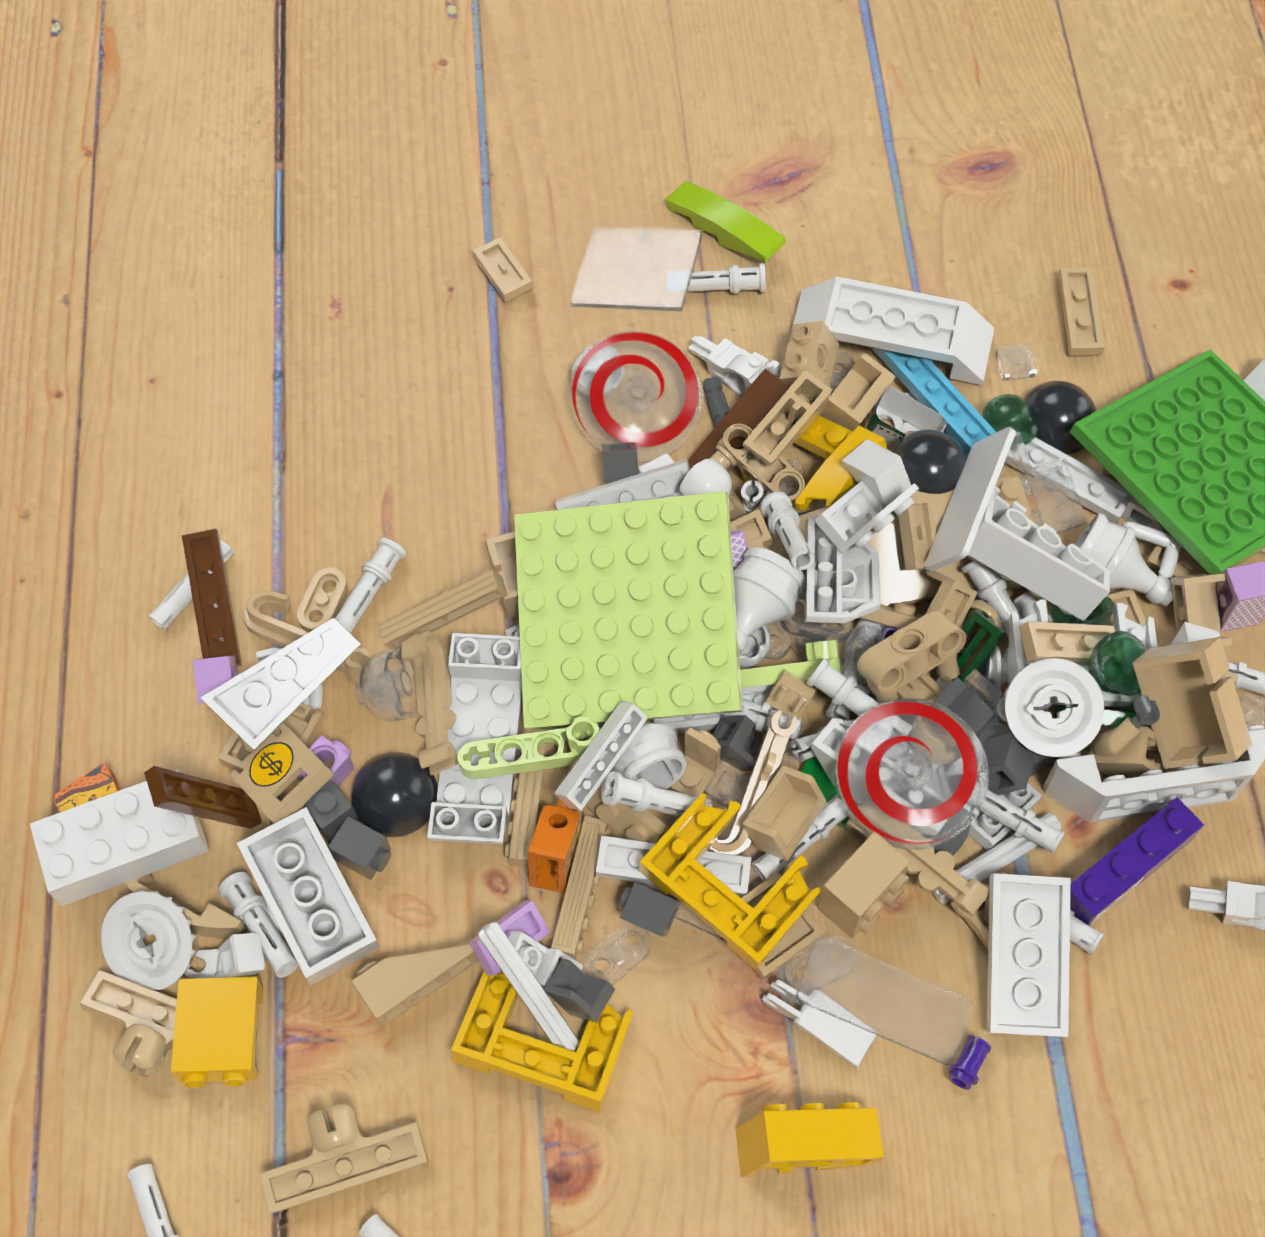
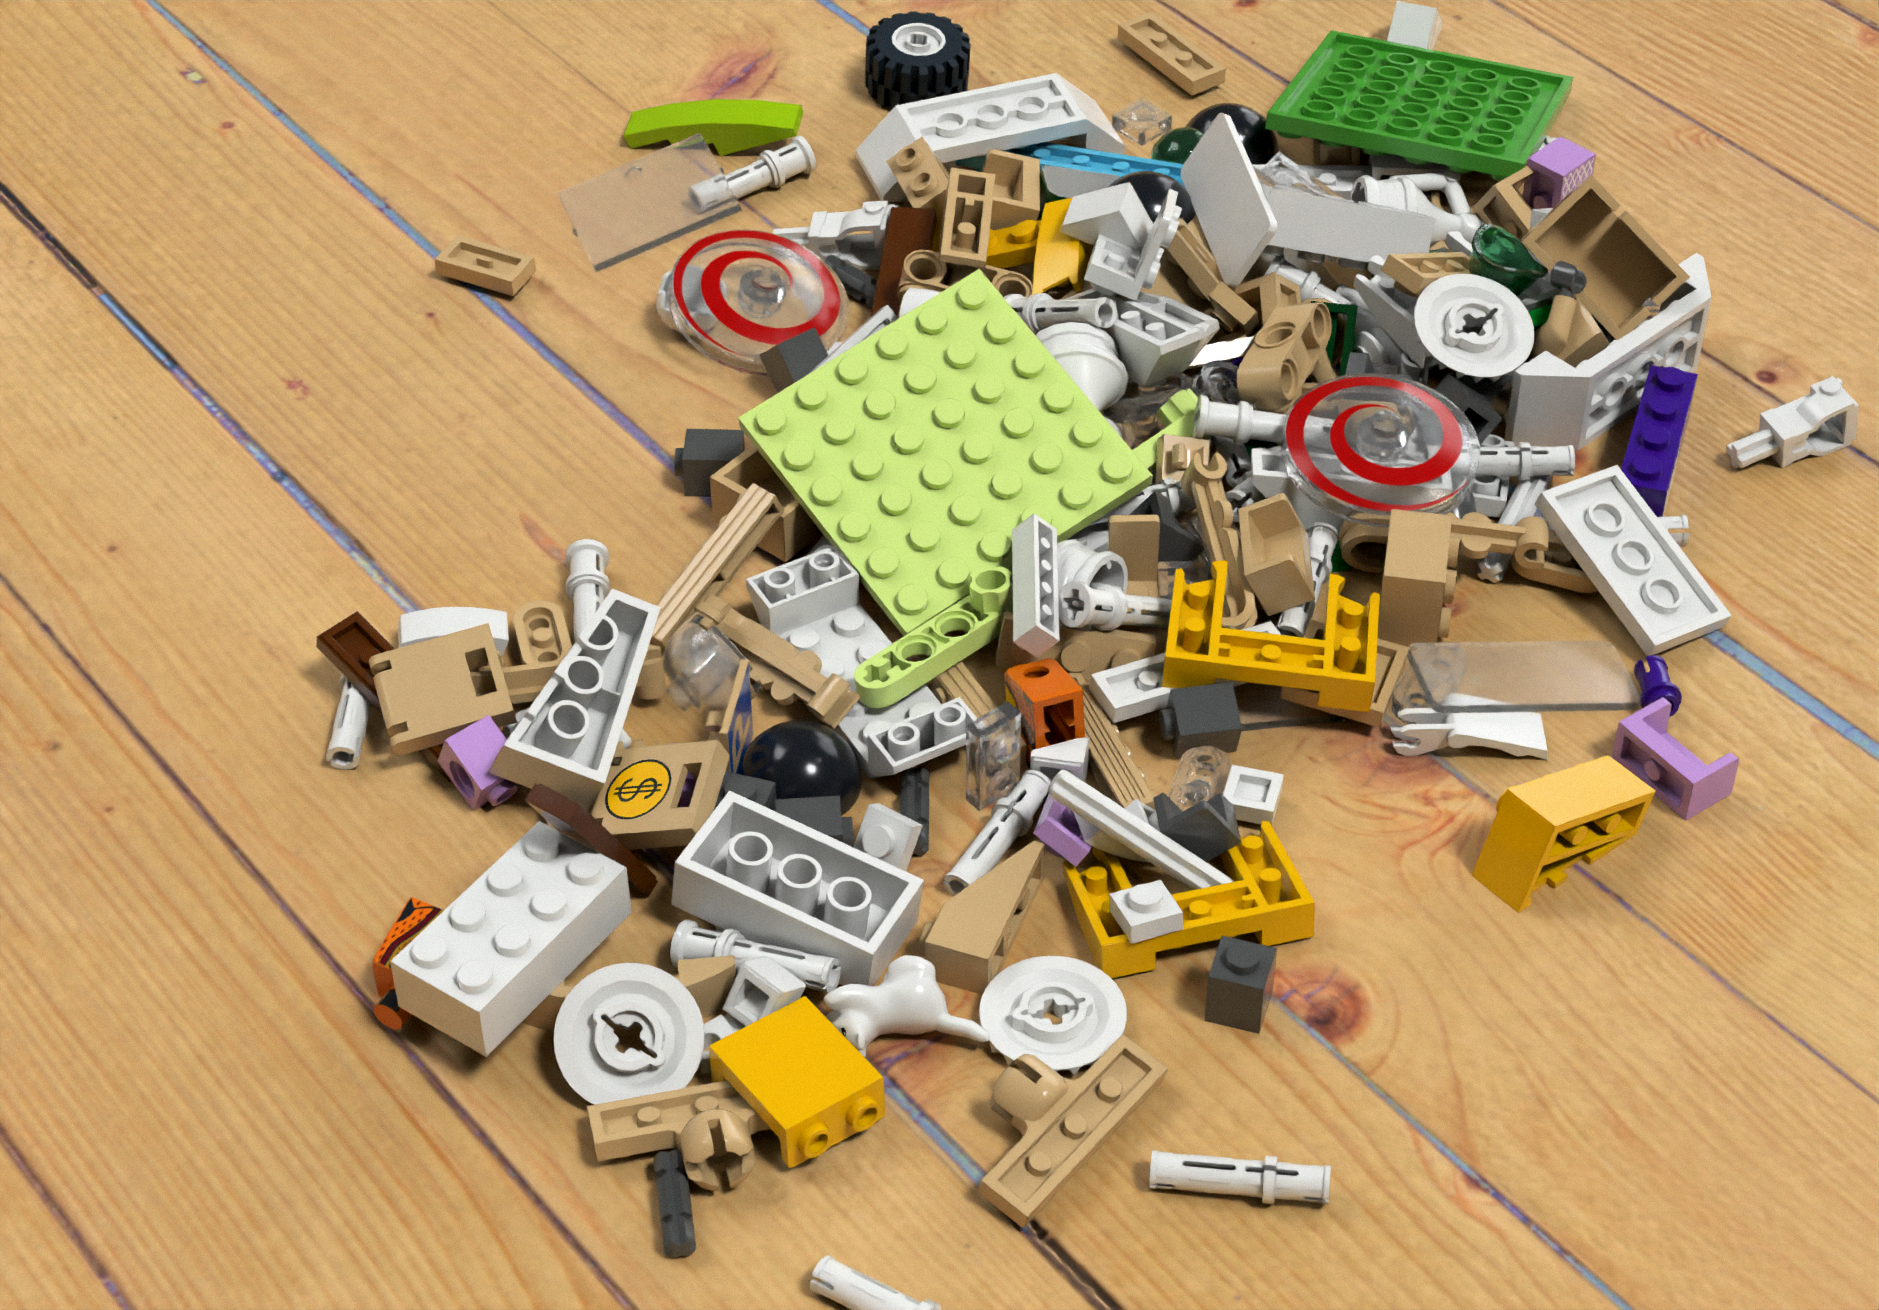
camera: 35 degrees left, 20 degrees down
(99, 1069) = (674, 1204): none -> dark grey axle
(217, 612) = (430, 691): none -> tan container
(274, 560) = (436, 622): none -> white slope
(317, 1013) = (903, 1004): none -> white animal
(361, 747) = (735, 725): none -> tan piece
(390, 1046) = (1074, 990): none -> white gear
(399, 880) = (888, 835): none -> white plate
(435, 867) = (915, 803): none -> dark grey axle
(467, 916) = (1010, 819): none -> white pin
(492, 1043) = (1146, 911): none -> white plate
(495, 864) = (993, 755): none -> clear plate
(508, 504) = (705, 454): none -> dark grey brick
(515, 1129) = (1240, 984): none -> dark grey brick
(542, 891) = (1067, 755): none -> white slope
(640, 983) = (1253, 793): none -> white plate
(894, 234) = (916, 58): none -> black wheel
(912, 591) = (1233, 312): none -> tan plate
(928, 1130) = (1668, 766): none -> lavender panel

